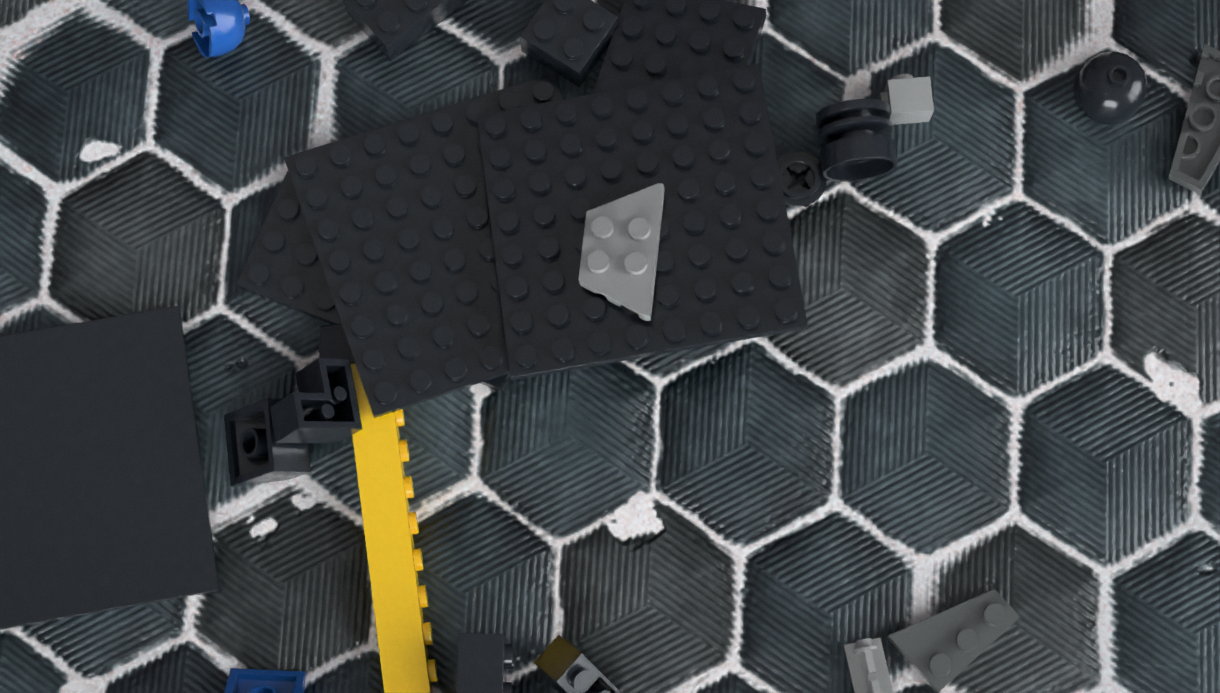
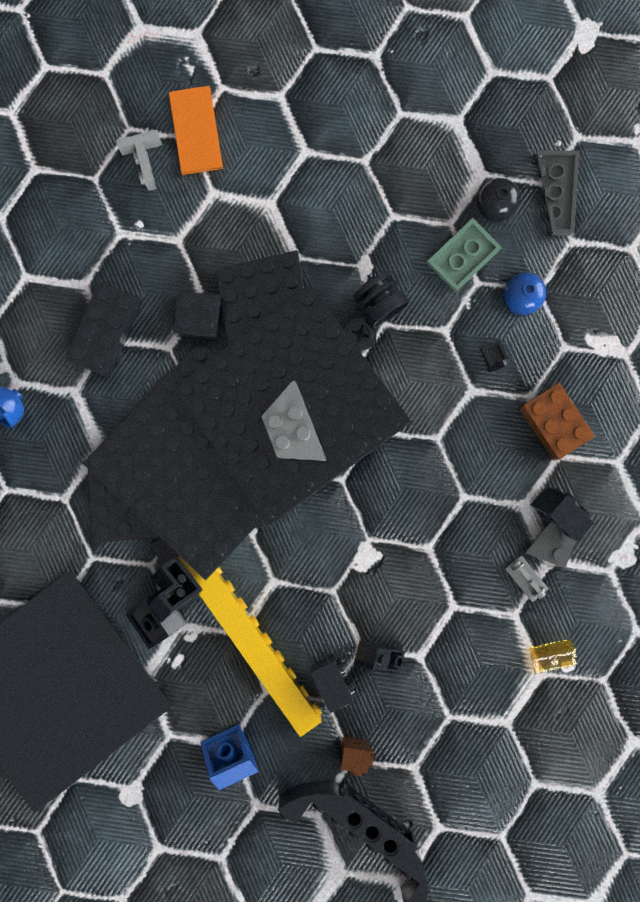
camera: 30 degrees left, 10 degrees up
(908, 99) = (396, 260): light grey brick -> none
(978, 596) = (563, 512): none -> black brick
(991, 315) = (495, 356): none -> black tile
(1016, 141) = (464, 255): none -> sand green plate
(1036, 456) = (556, 422): none -> dark orange brick
(1082, 243) = (524, 293): none -> blue cylinder

